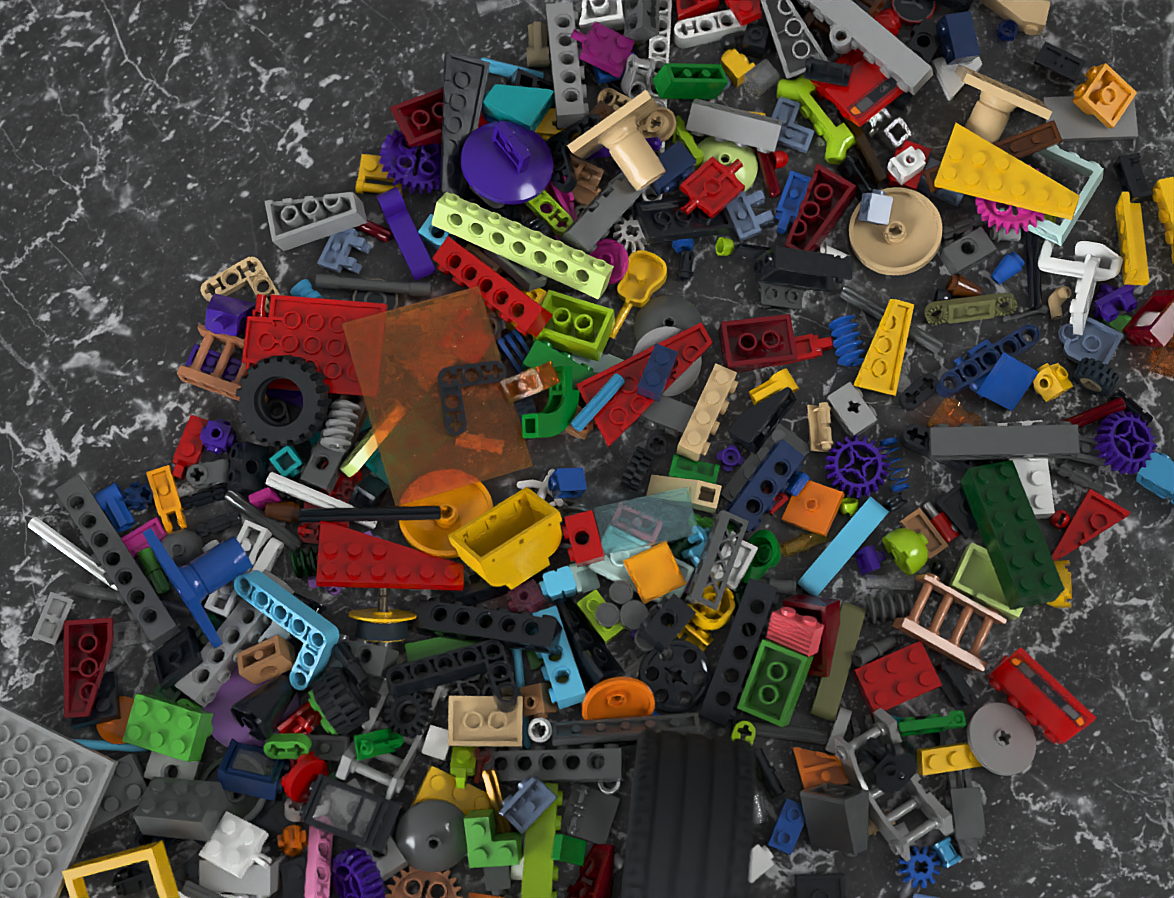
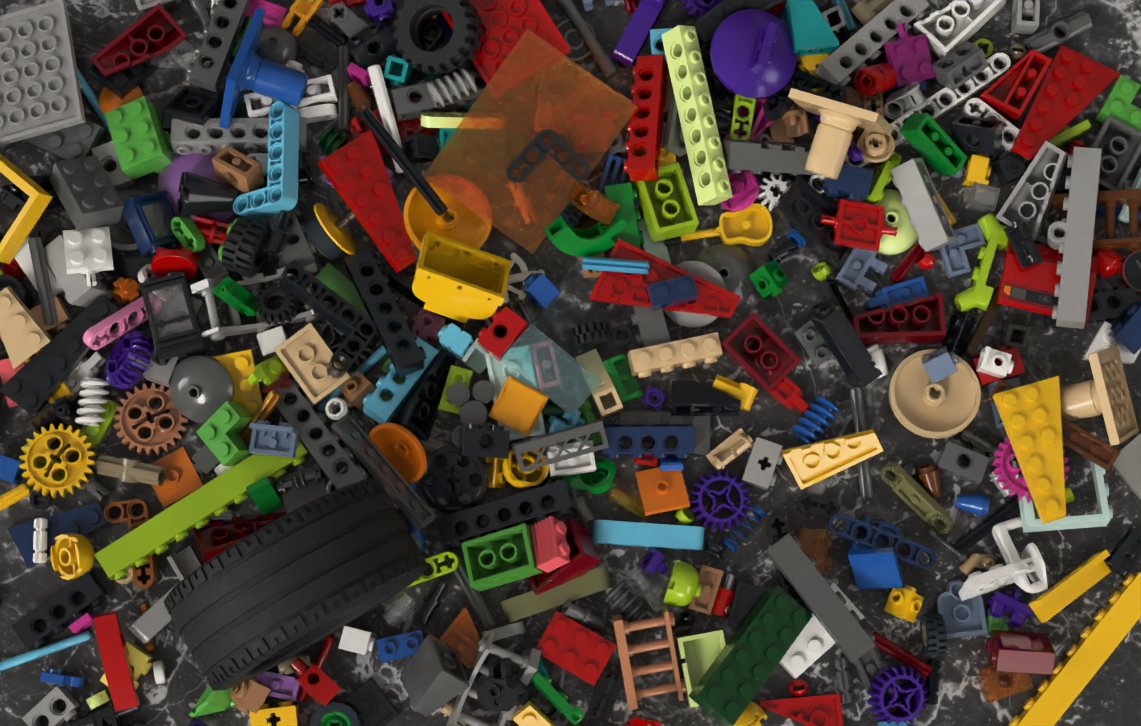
camera: 50 degrees right, 5 degrees up
(602, 85) = (875, 79): none -> red wheel
(702, 291) = (769, 279): none -> green brick
(710, 32) = (986, 129): none -> black brick

